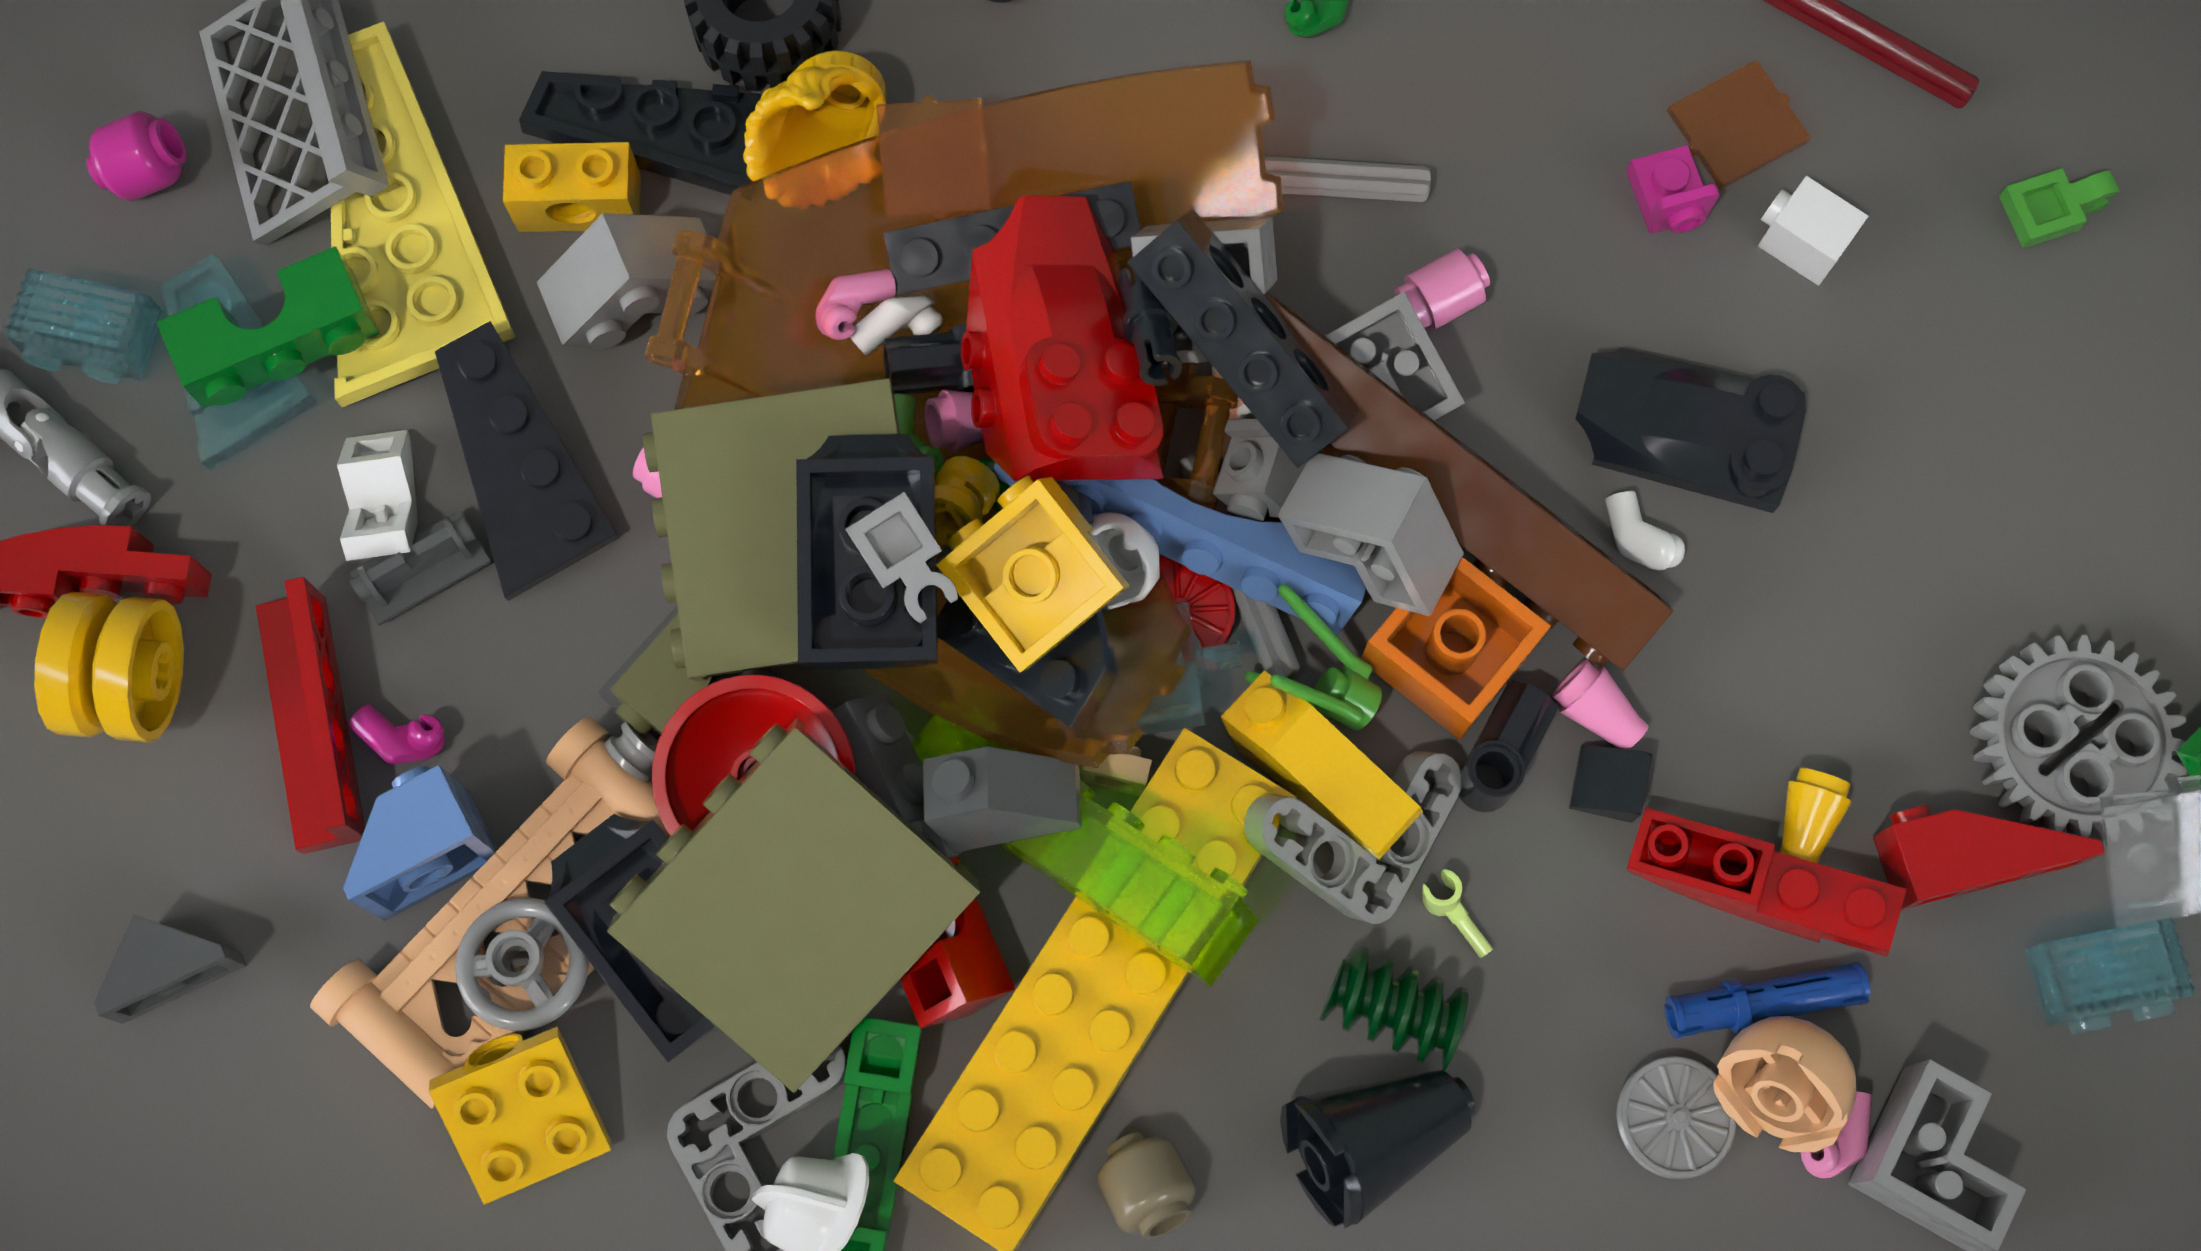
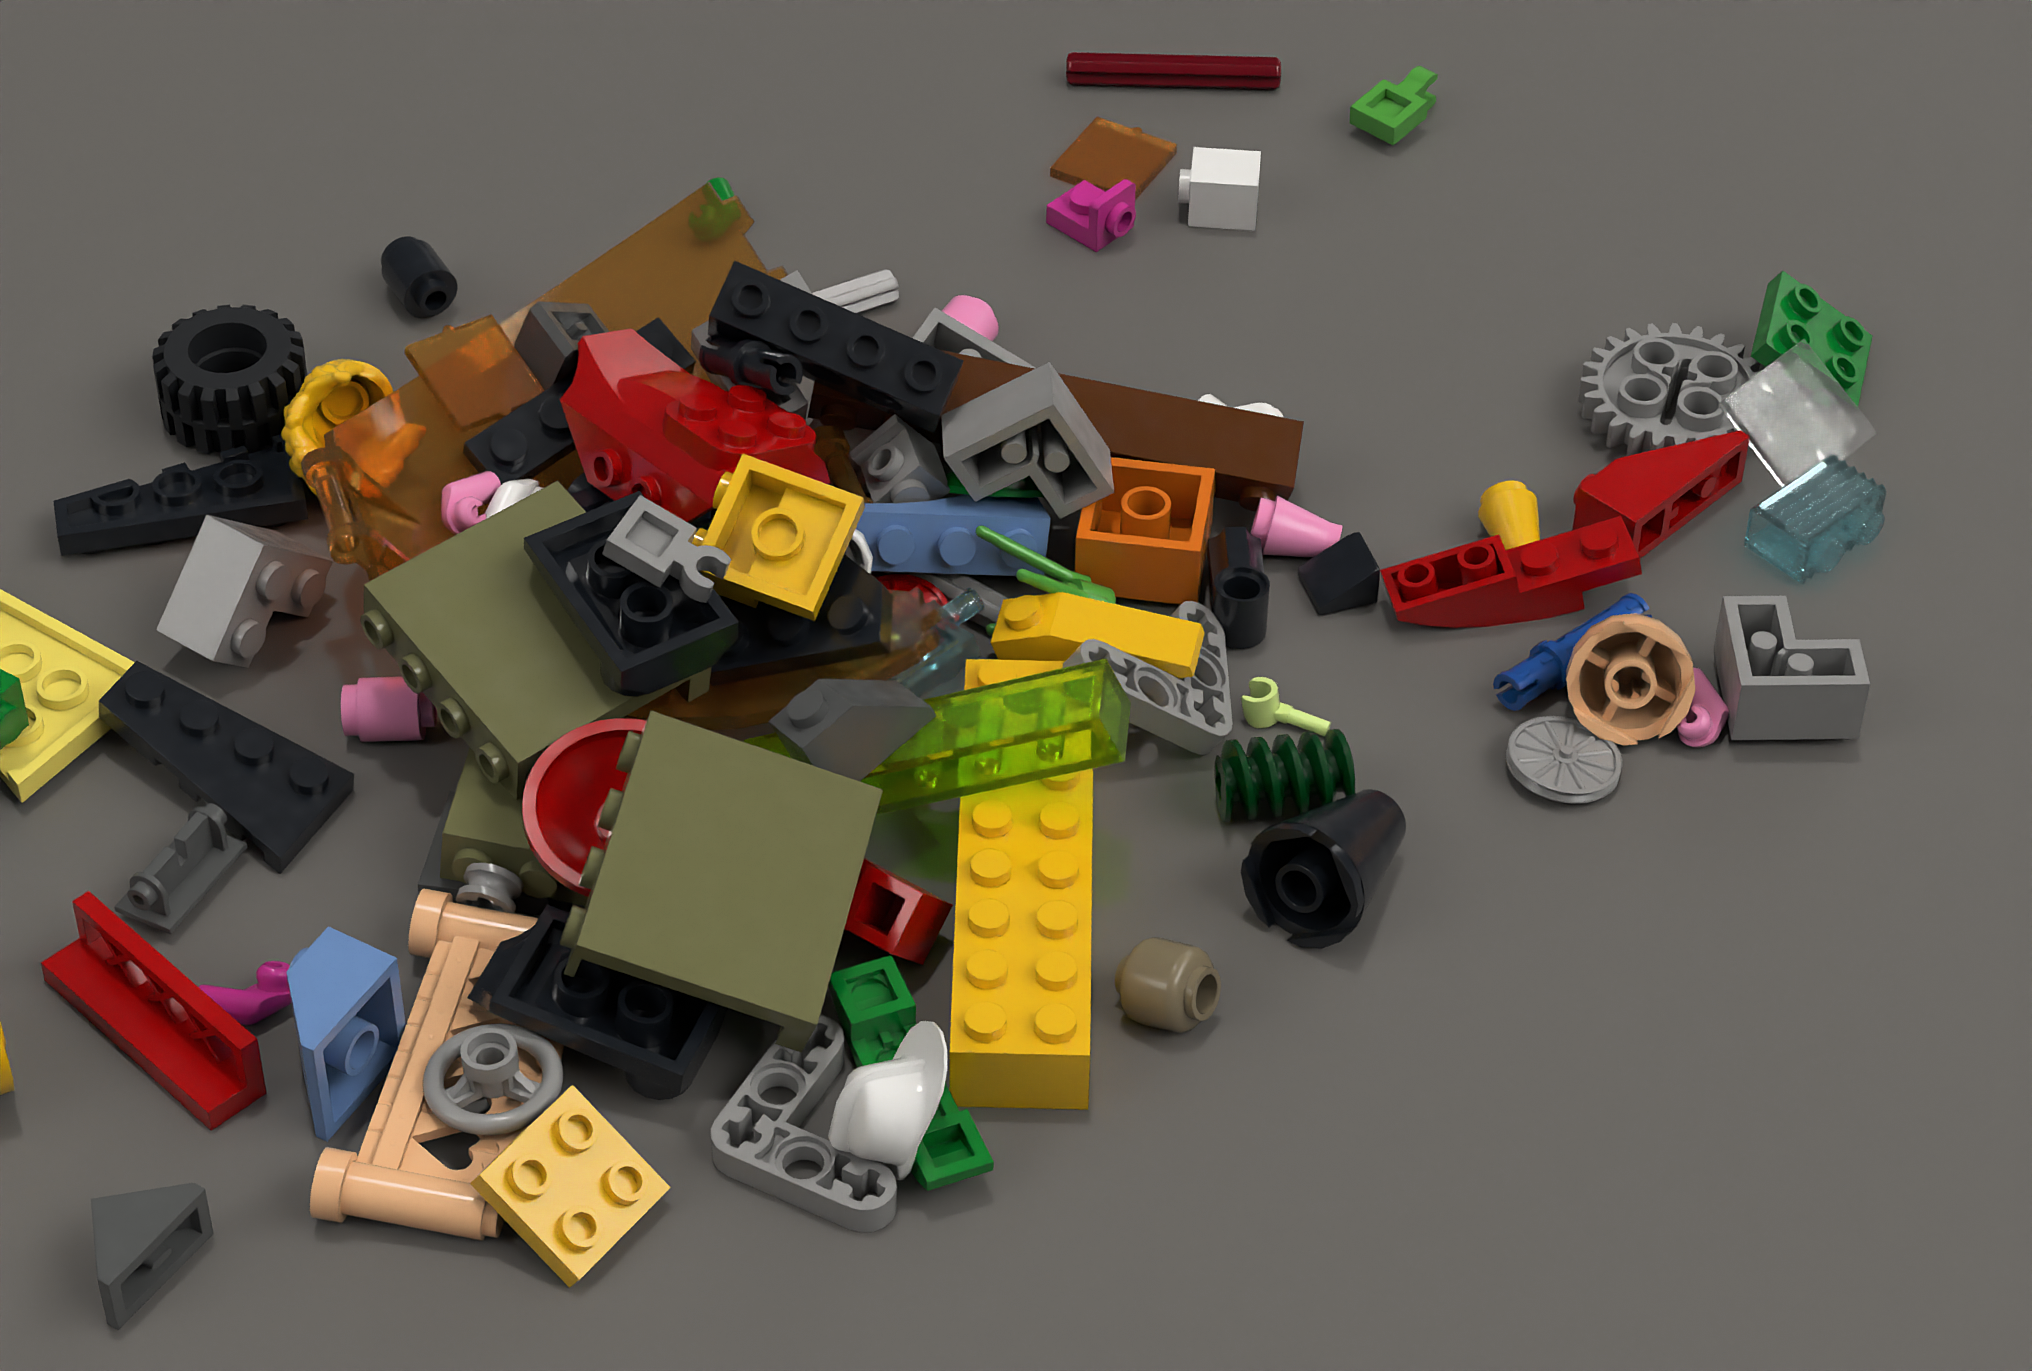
camera: 30 degrees left, 30 degrees down
(379, 495) = (103, 839): white slope -> none
(569, 184) = (133, 559): yellow brick -> none
(1038, 165) = (551, 338): none -> dark grey slope
(1692, 426) = (1233, 341): black slope -> none

